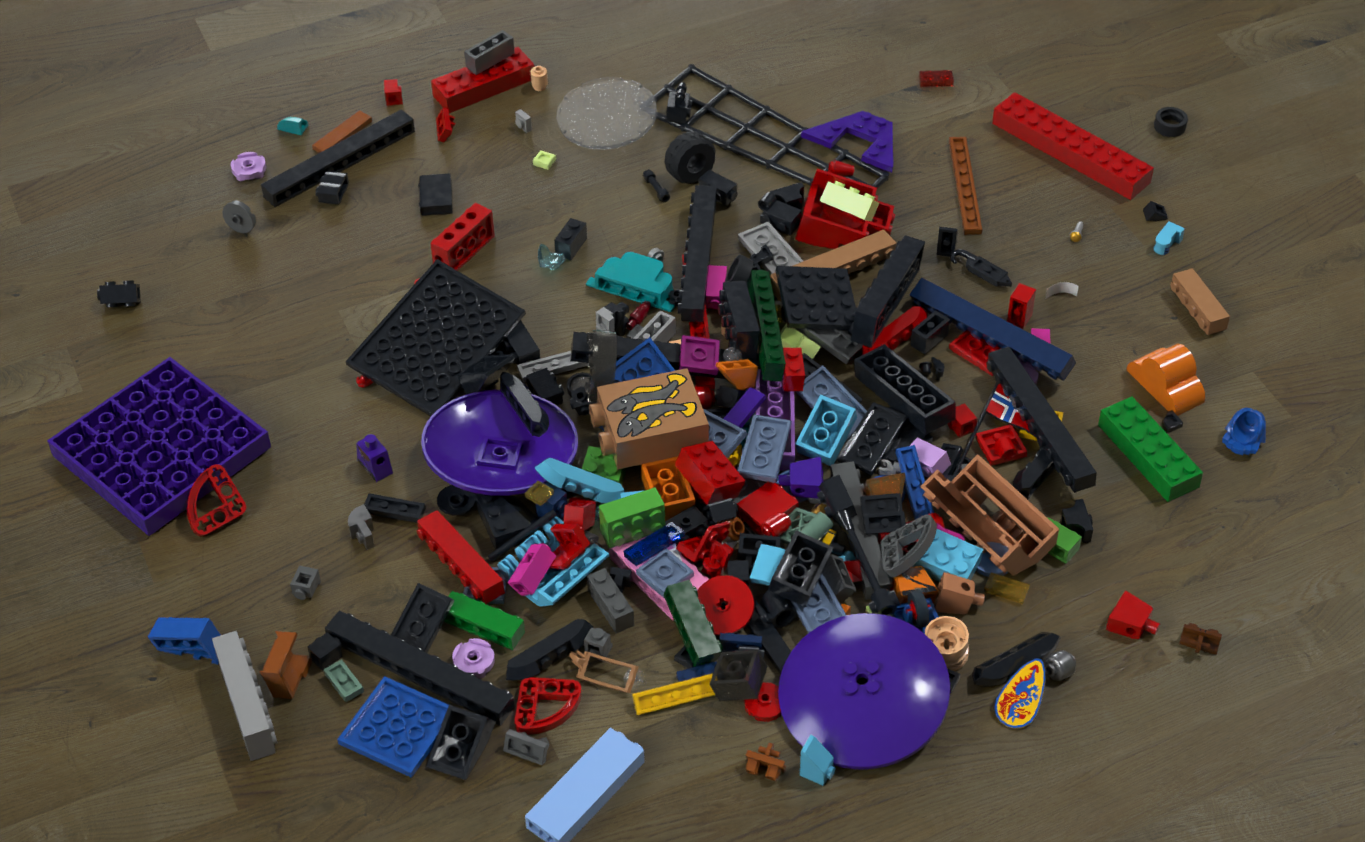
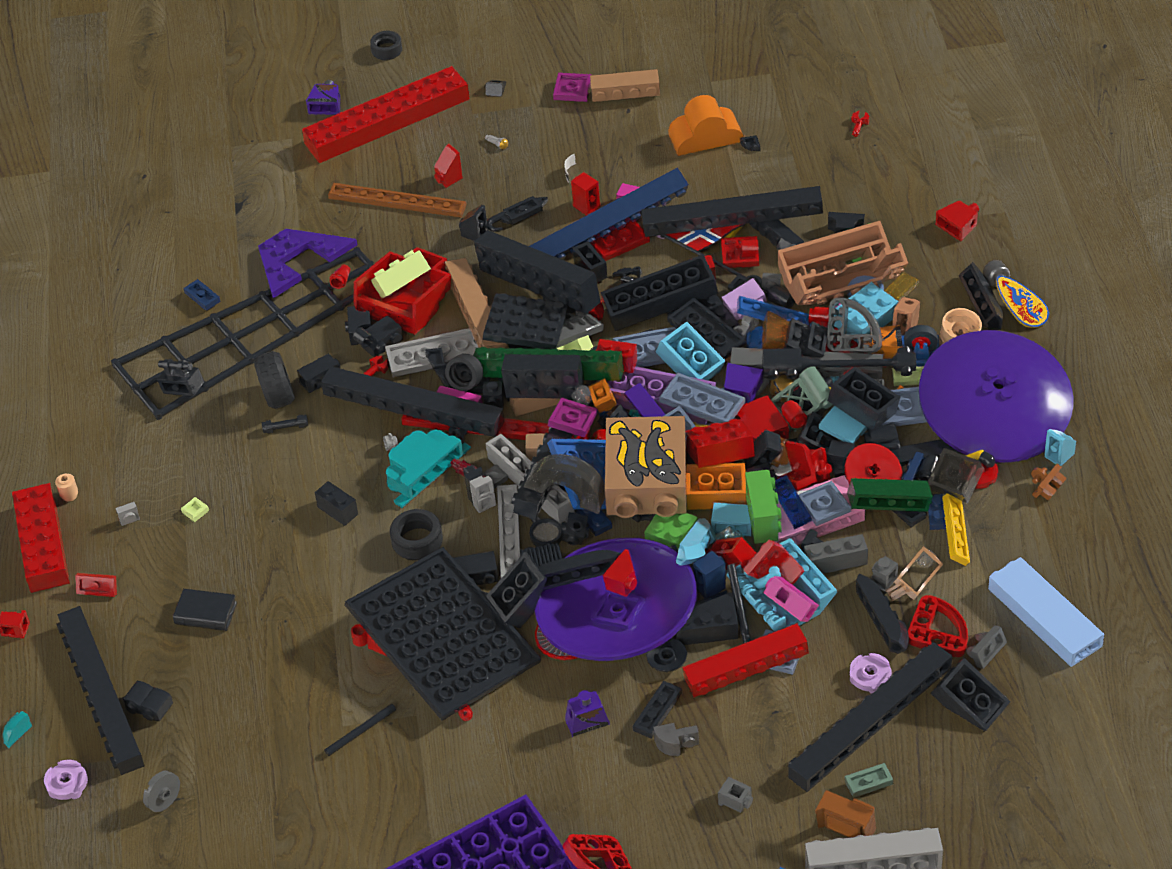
camera: 70 degrees left, 0 degrees up
(325, 651) = (829, 782): black brick -> none
(334, 321) = (360, 729): none -> black bar
(343, 131) = (53, 683): dark orange tile -> none
(395, 726) = (936, 743): blue plate -> none
(422, 617) = (816, 700): black tile -> none
(464, 237) = (300, 590): red brick -> none
(485, 621) = (827, 657): green brick -> none
(489, 52) = (26, 508): dark grey brick -> none
(520, 434) = (621, 575): none -> red slope
(539, 493) = (708, 569): clear yellow tile -> none
(545, 286) = (412, 520): none -> black tyre
(549, 260) = (356, 527): clear light blue plate -> none
(557, 548) = (761, 582): none -> medium azure arm
(606, 113) = (151, 443): clear tile -> none
(751, 223) = (376, 366): none -> red bar
(774, 695) = (984, 458): none -> black arm
(788, 94) = (201, 294): none -> dark blue plate
(936, 78) = (236, 185): clear red plate -> none
(1015, 203) = (448, 167): none -> red slope
(1073, 100) = (324, 99): none -> dark purple torso
(1150, 449) = (781, 160): green brick -> none
(1167, 236) = (534, 86): medium azure leg -> none
(1179, 261) = (572, 87): none -> magenta plate
(1200, 638) = (993, 184): reddish brown hips -> none
(1245, 432) = (785, 99): blue hair -> none
(1252, 504) = (859, 122): none -> red bar

